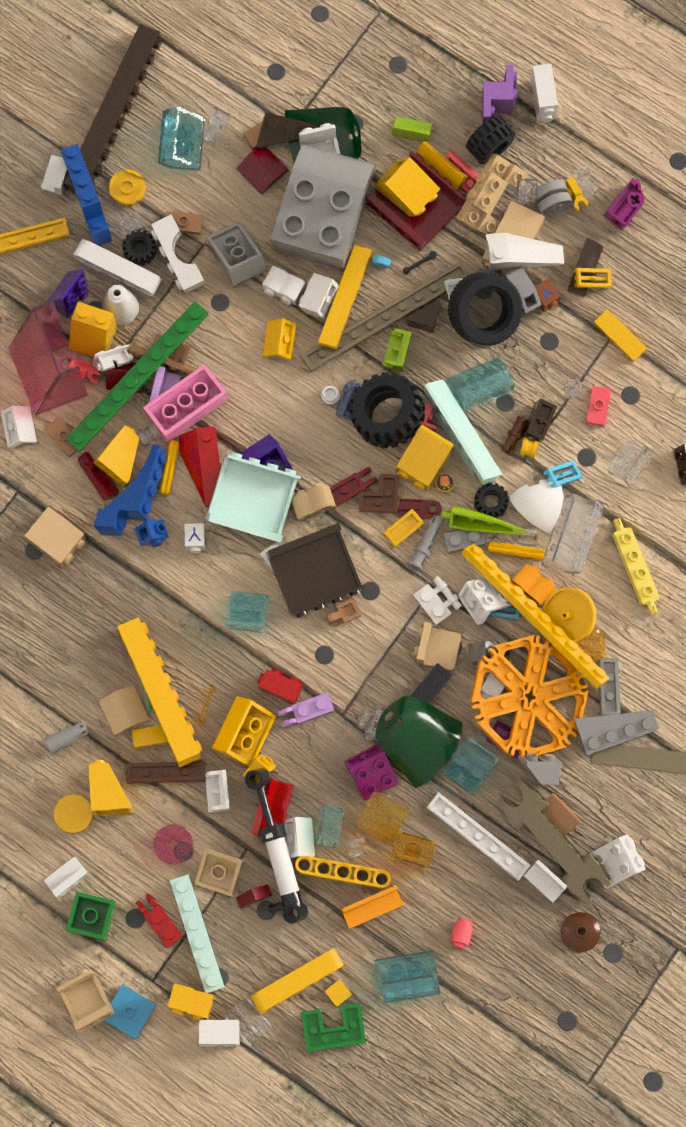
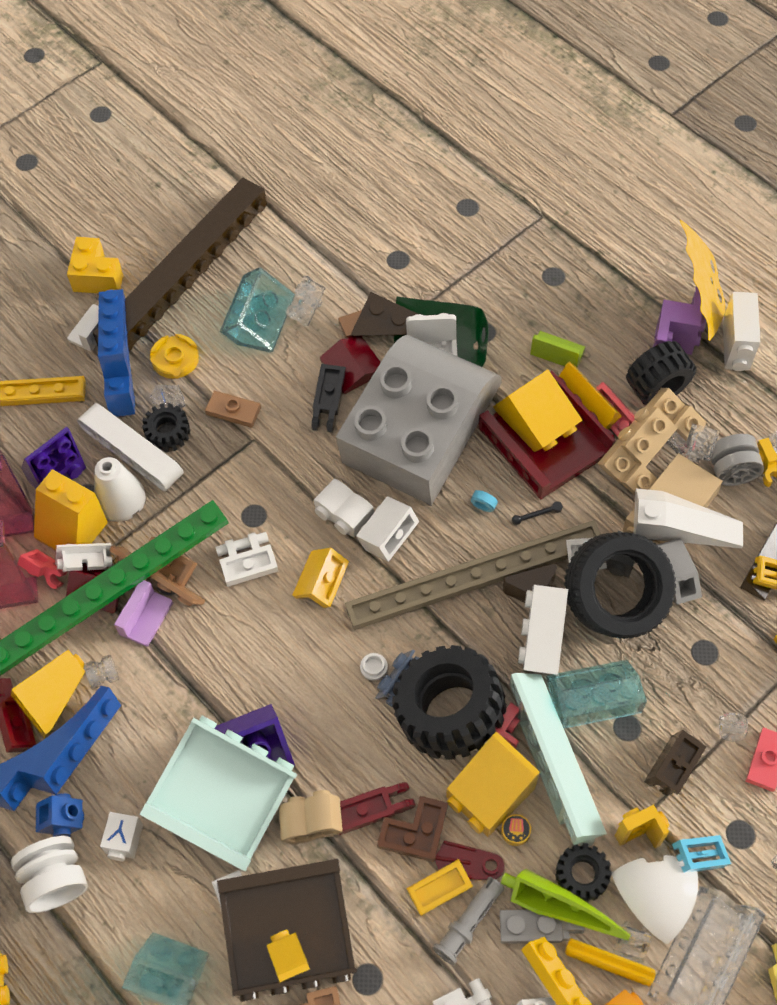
camera: 15 degrees right, 15 degrees down
(44, 130) = (91, 270): none -> yellow brick
(156, 566) = (49, 874): none -> white wheel
(168, 233) = (218, 470): white arch -> none
(169, 468) = (117, 725): yellow axle -> none
(186, 403) = (164, 638): bright pink slope -> none
(201, 458) = (166, 713): red wedge -> none
(227, 340) = (249, 564): none -> white plate
(237, 253) = (291, 458): light grey slope -> none
(251, 199) = (328, 395): none -> black hinge
(321, 585) = (287, 955): none -> yellow slope
(345, 297) = (423, 539): yellow tile -> none
(397, 349) = (483, 622): lime hinge -> none
(439, 349) = (543, 629): none -> white piece
(513, 67) = (700, 257): none -> yellow piece
(514, 435) = (634, 777): reddish brown pin -> none
(523, 462) = (640, 822): none -> yellow bracket
(529, 448) = (654, 797): yellow wheel -> none
(548, 295) = (713, 587): dark orange brick -> none

